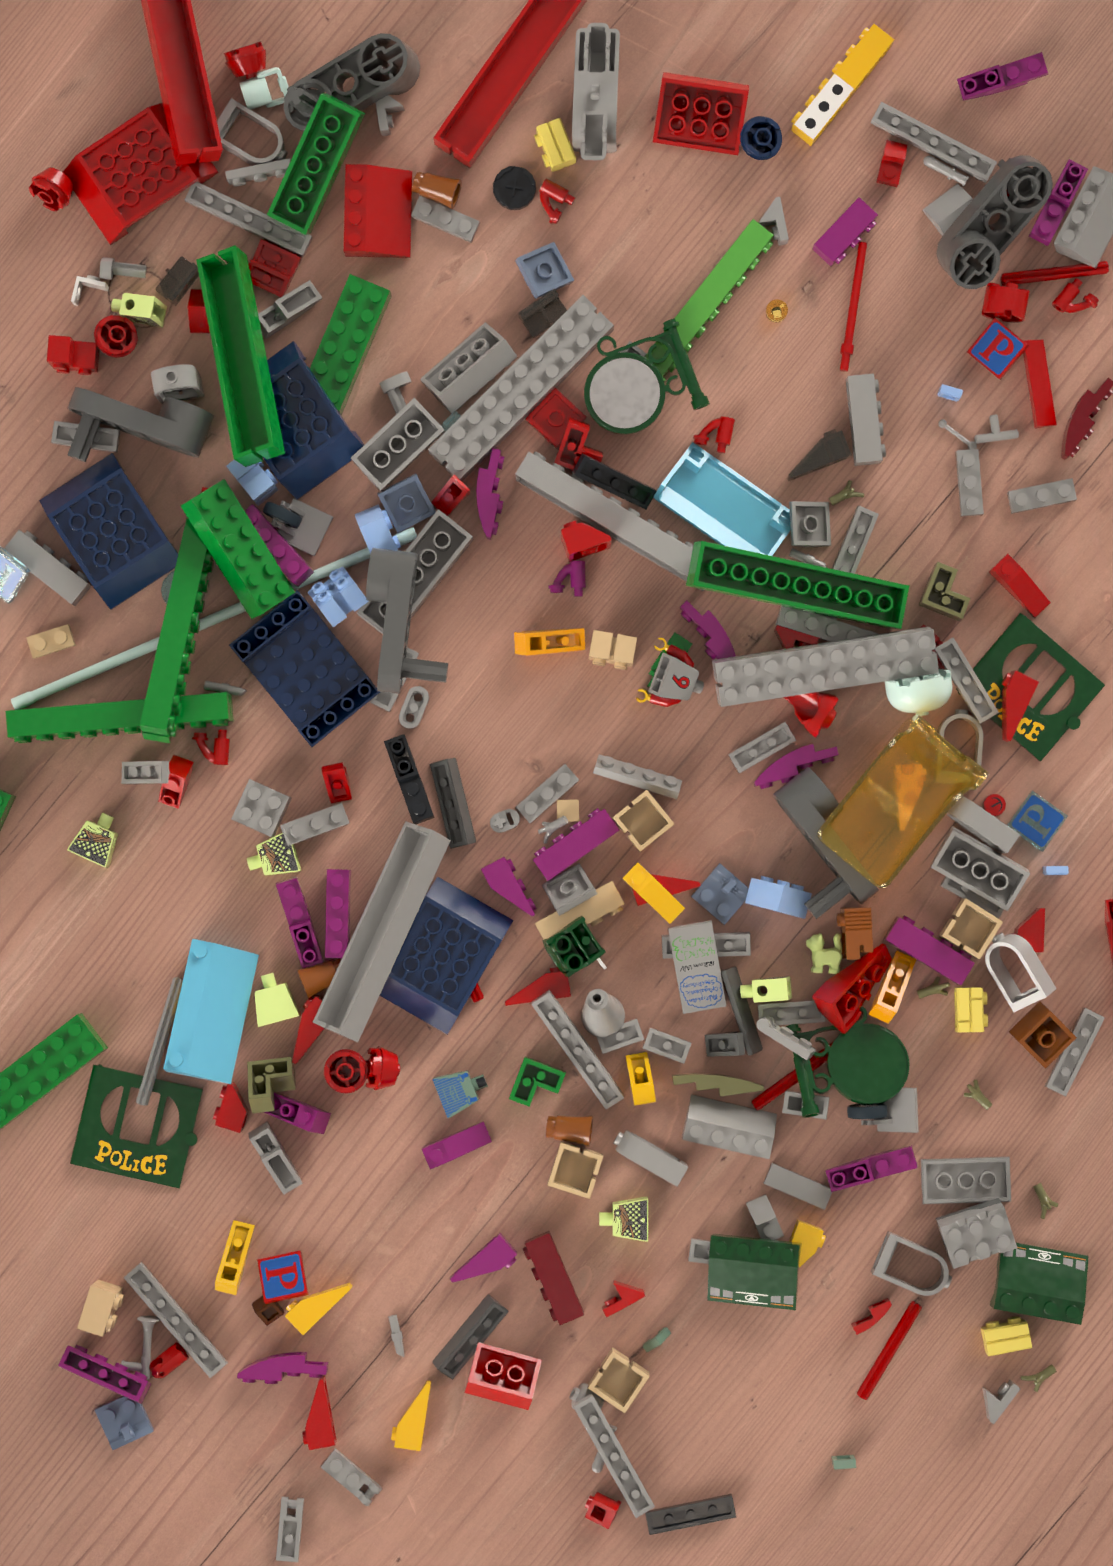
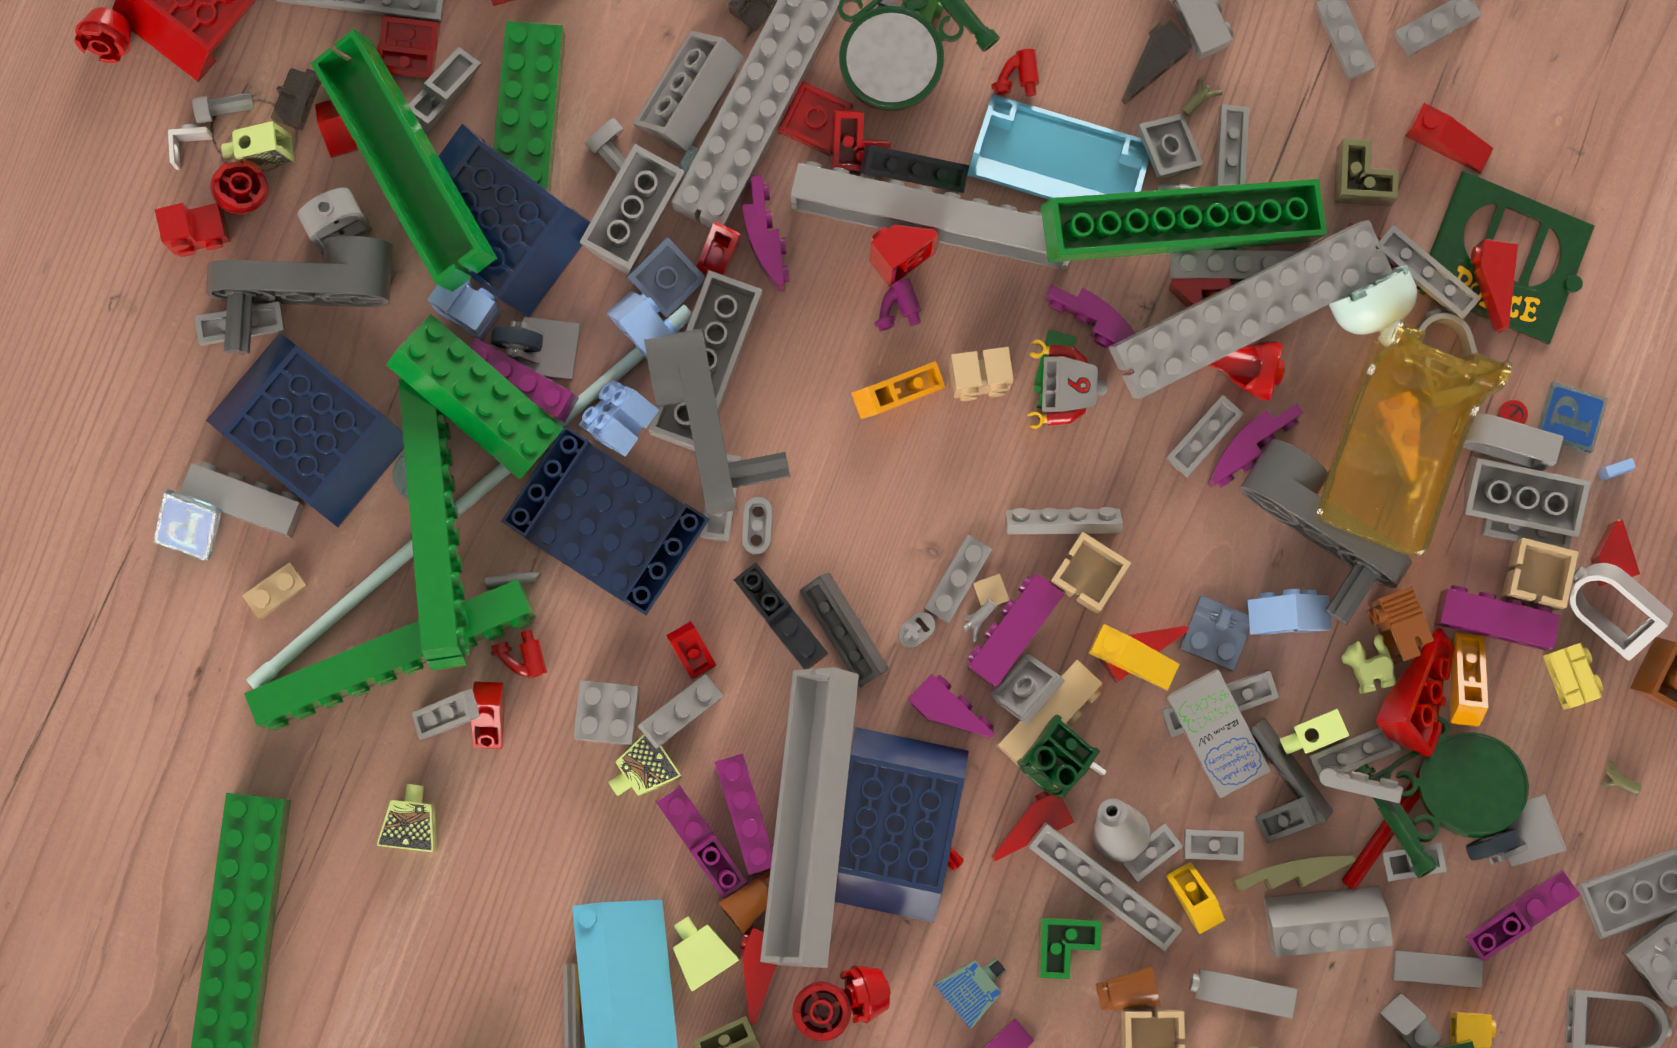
camera: 25 degrees left, 5 degrees down
(934, 988) = (1519, 665): olive bar -> none

